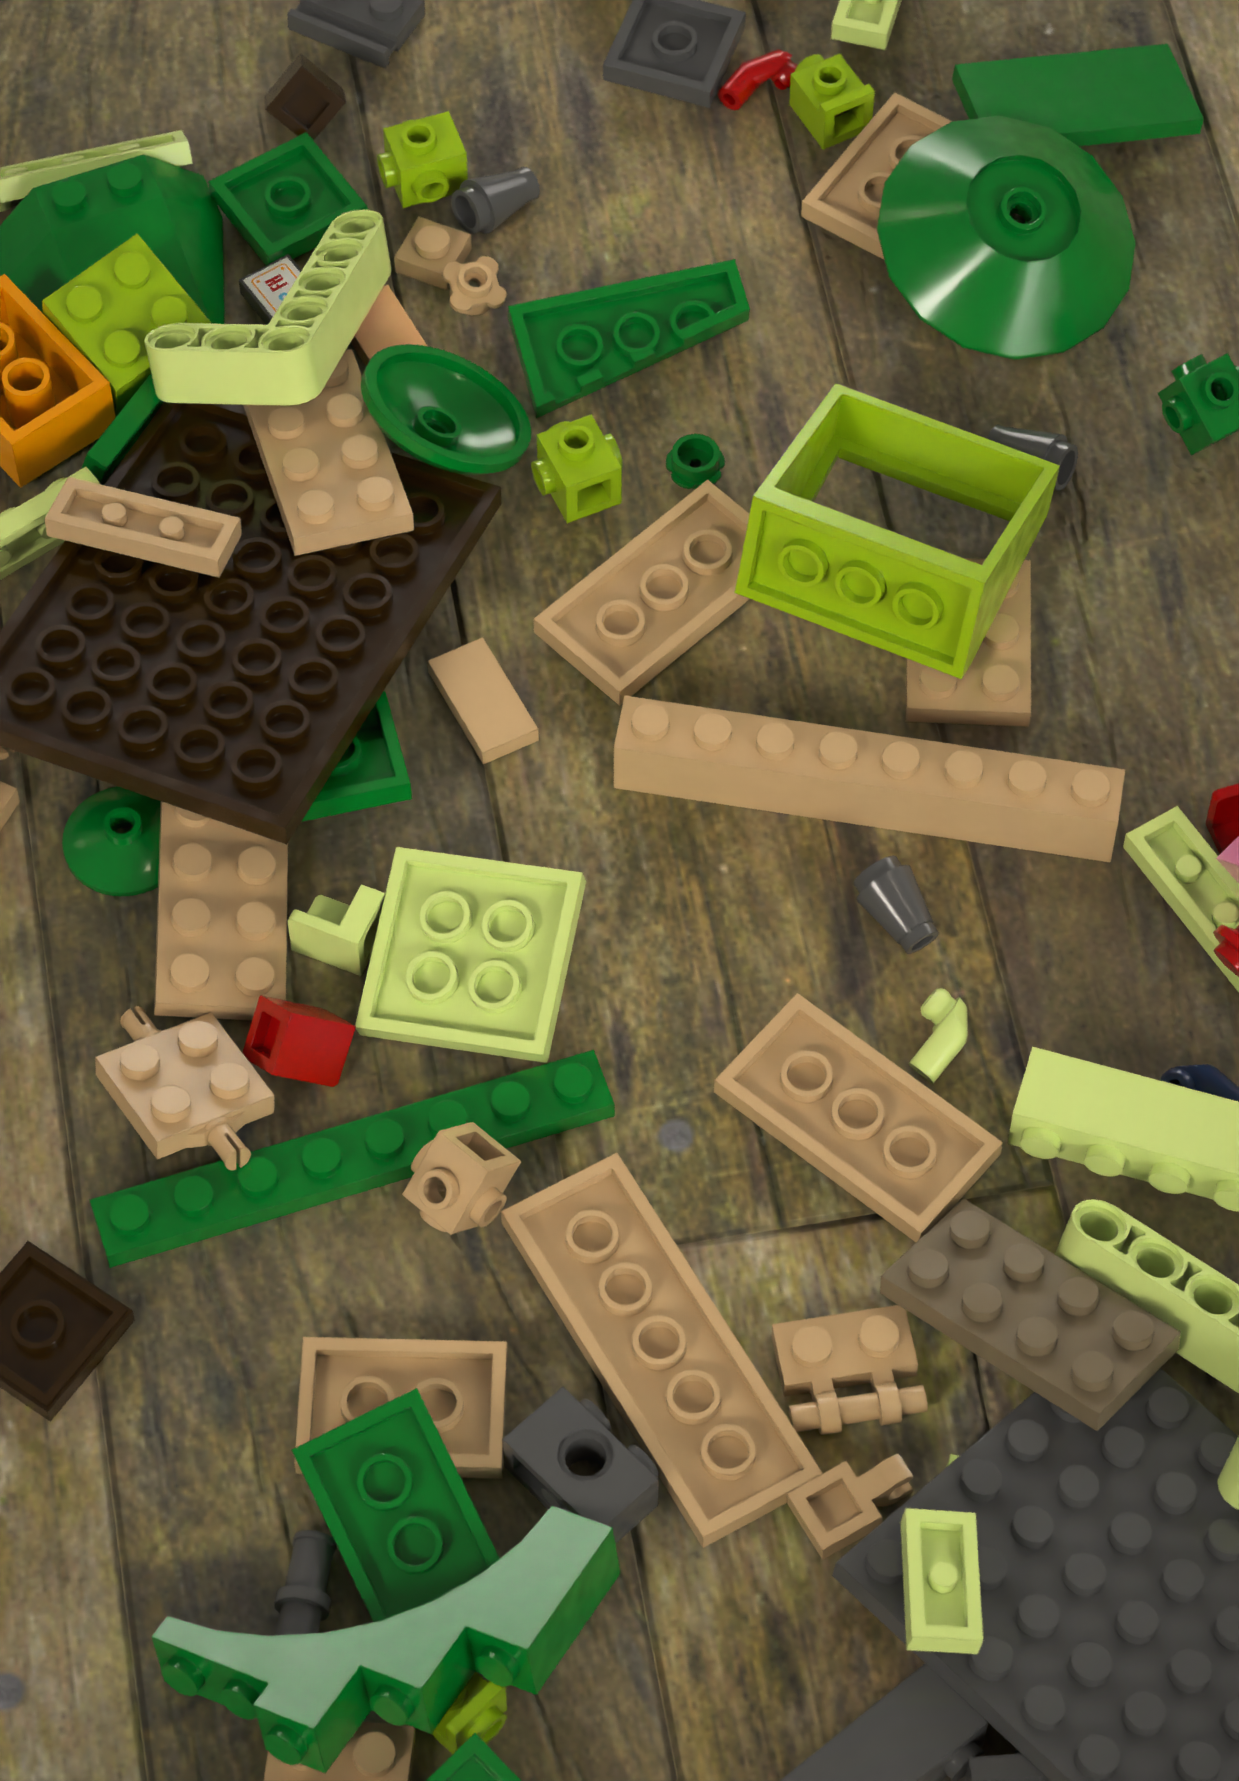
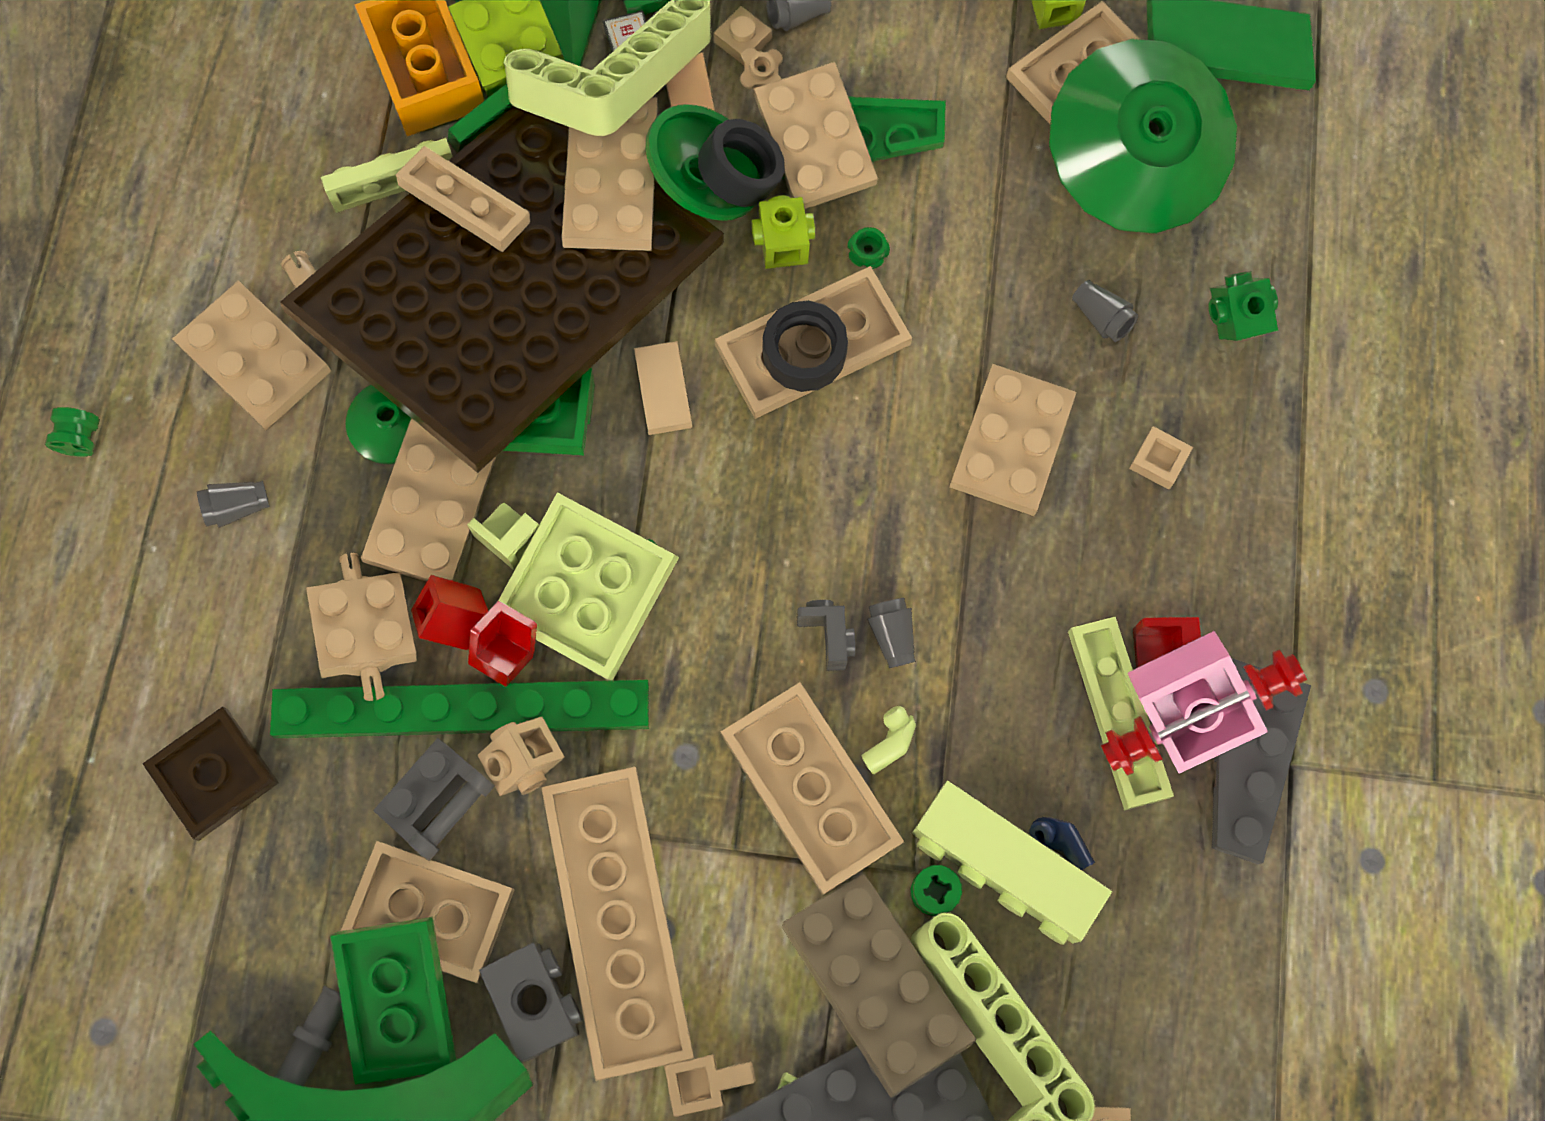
camera: 15 degrees right, 15 degrees up
(346, 1260) = (425, 791): none -> dark grey plate
(386, 1051) = (502, 643): none -> red panel
(481, 414) = (753, 143): none -> black tyre
(579, 341) = (816, 135): none -> tan plate
(659, 552) = (809, 314): none -> black tyre
(814, 913) = (838, 639): none -> dark grey bracket
(847, 1352) = (744, 962): tan plate -> none
(868, 778) = (906, 531): tan brick -> none
(874, 579) = (951, 385): lime windscreen -> none
(1050, 1203) = (927, 893): none -> green wheel
(1167, 608) = (1161, 458): none -> tan plate

